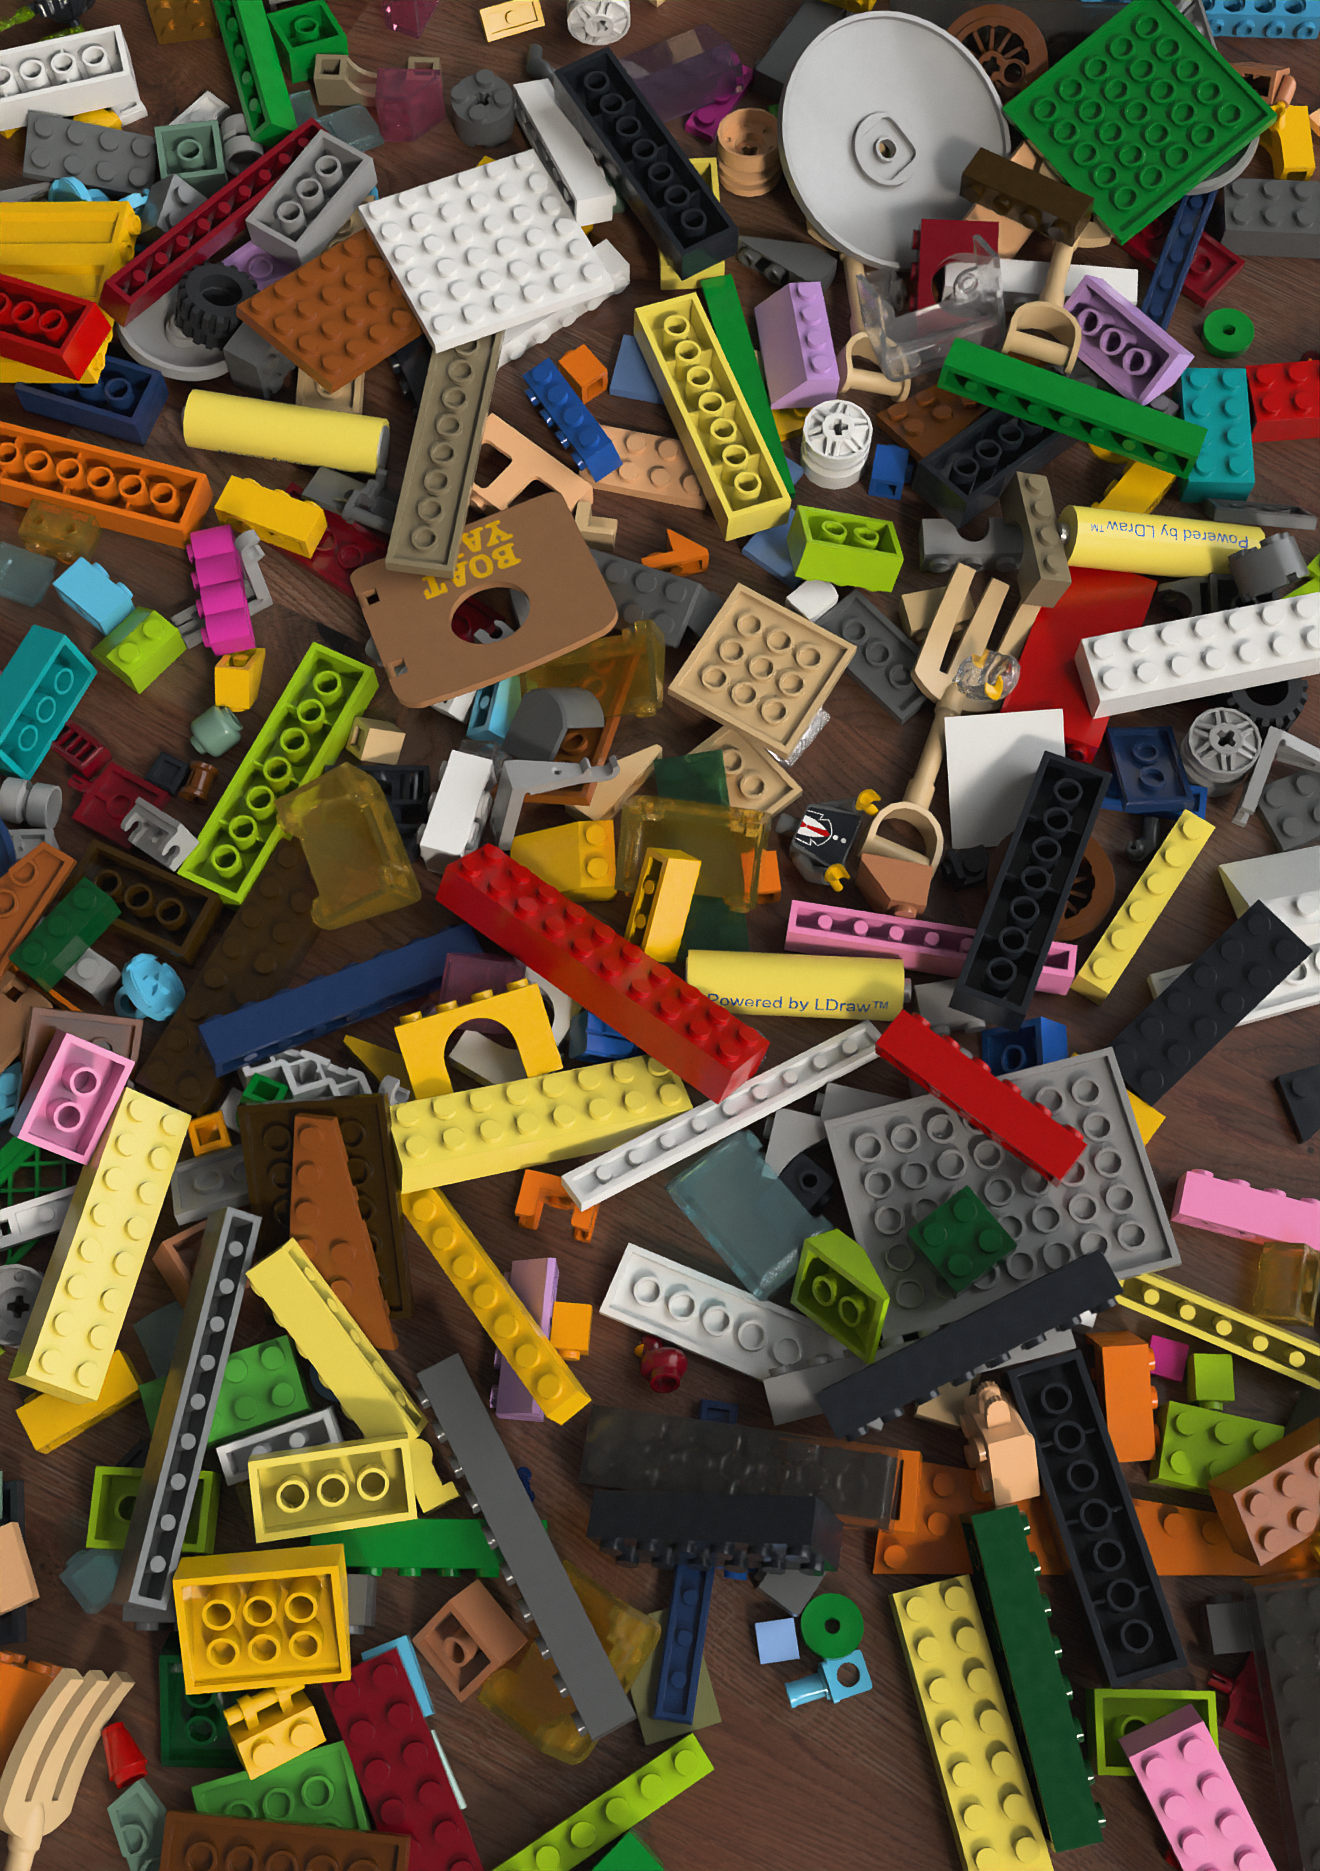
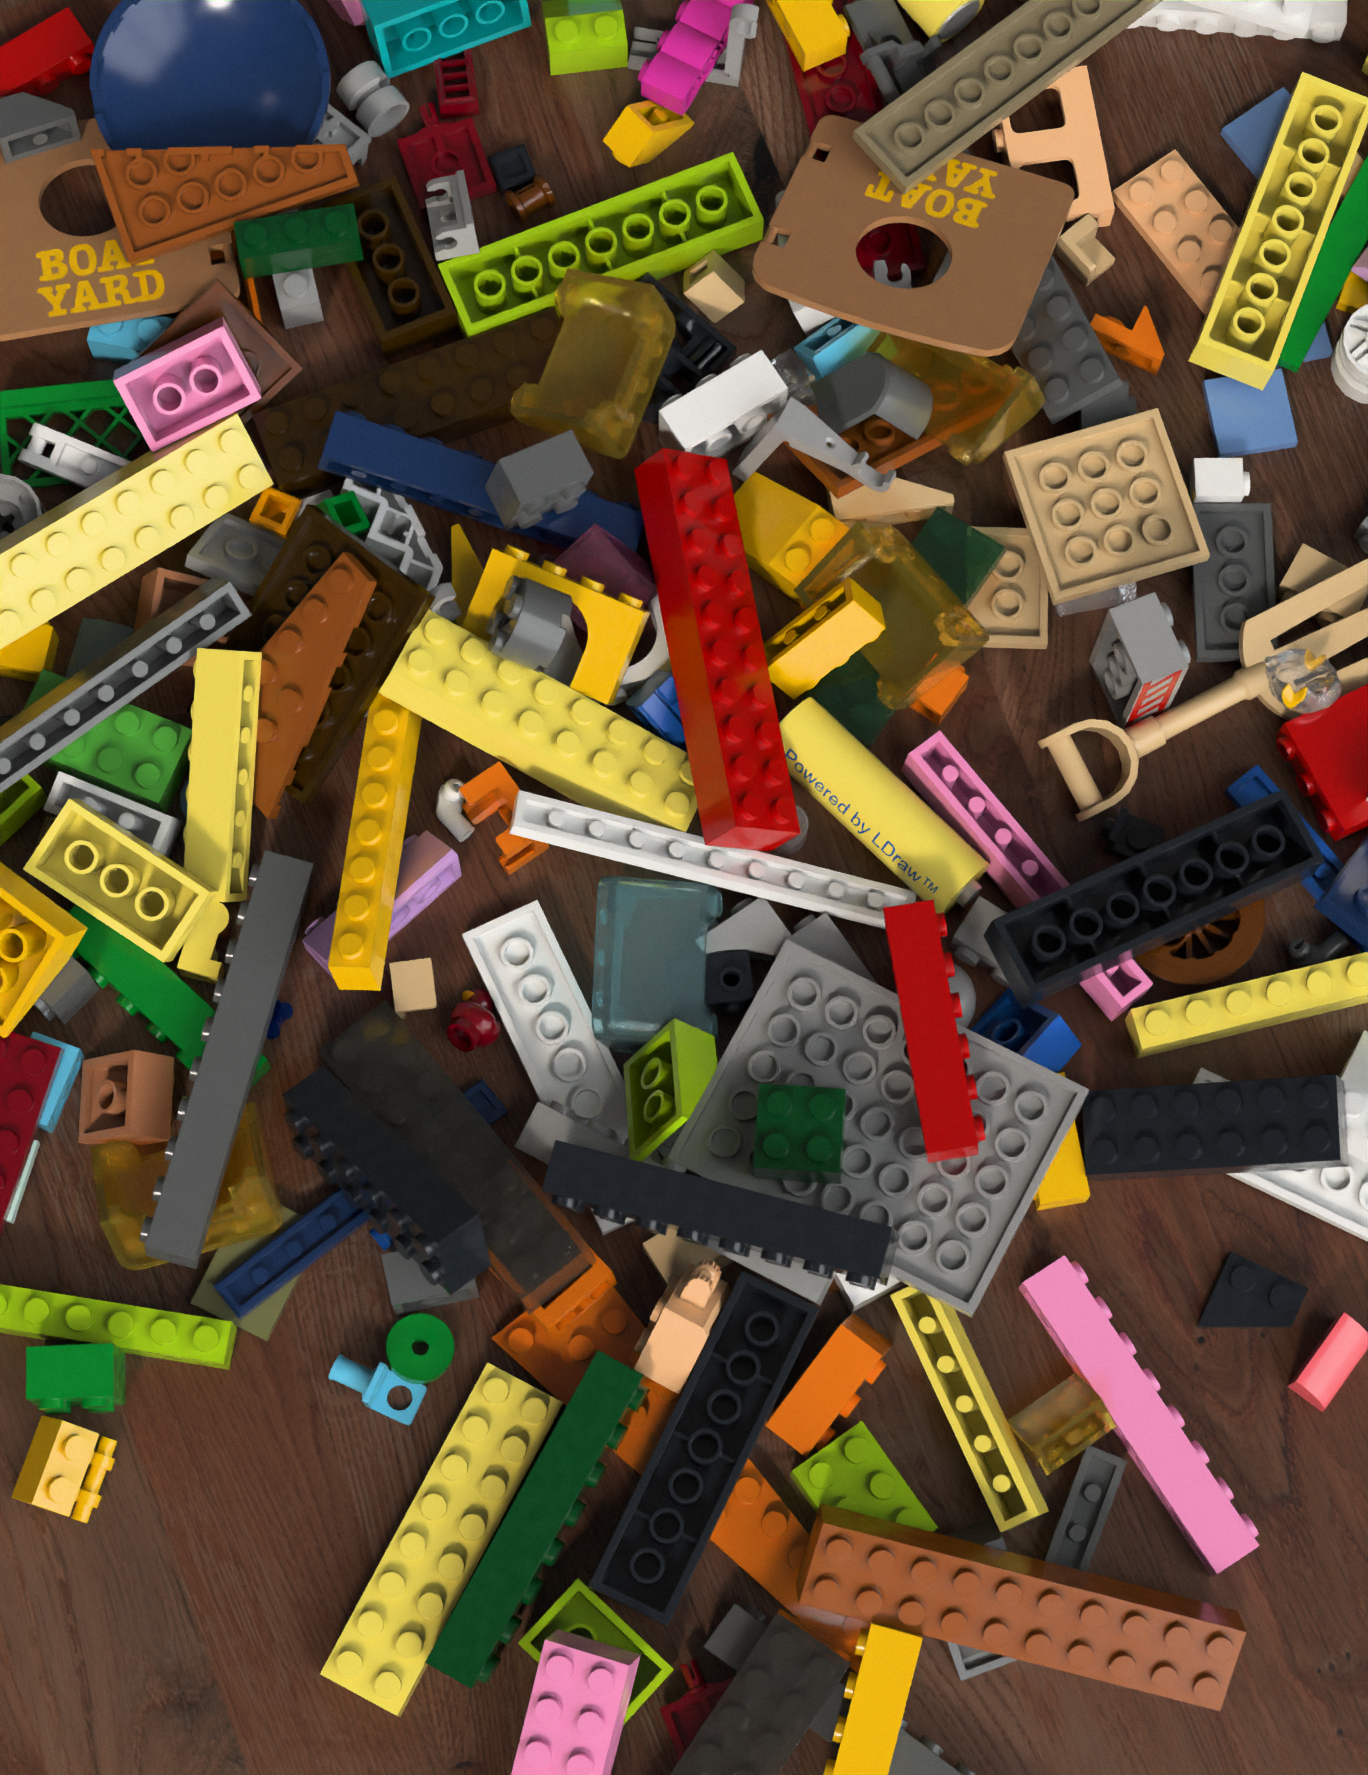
camera: 40 degrees right, 5 degrees up
(151, 988) = (332, 346): medium azure tile -> none
(215, 731) = (584, 164): sand green head -> none
(383, 956) = (539, 480): none -> dark grey brick
(467, 1056) = (529, 623): none -> dark grey brick
(510, 1232) = (449, 810): none -> white arm
(571, 1329) = (425, 929): light orange brick -> none
(572, 419) = (1152, 132): blue brick -> none
(584, 373) = (1208, 95): orange brick -> none
(600, 1377) = (413, 986): none -> tan panel
(776, 1641) = (366, 1320): light blue tile -> none
(826, 836) = (1028, 703): torso -> none
(844, 549) = (1287, 457): lime brick -> none
(880, 745) = (1139, 660): none -> light grey brick
(894, 885) = (1044, 799): nougat slope -> none
(993, 769) = (1232, 762): white sticker -> none
(1169, 1358) = (899, 1392): dark pink tile -> none
(1209, 1380) = (917, 1441): lime brick -> none

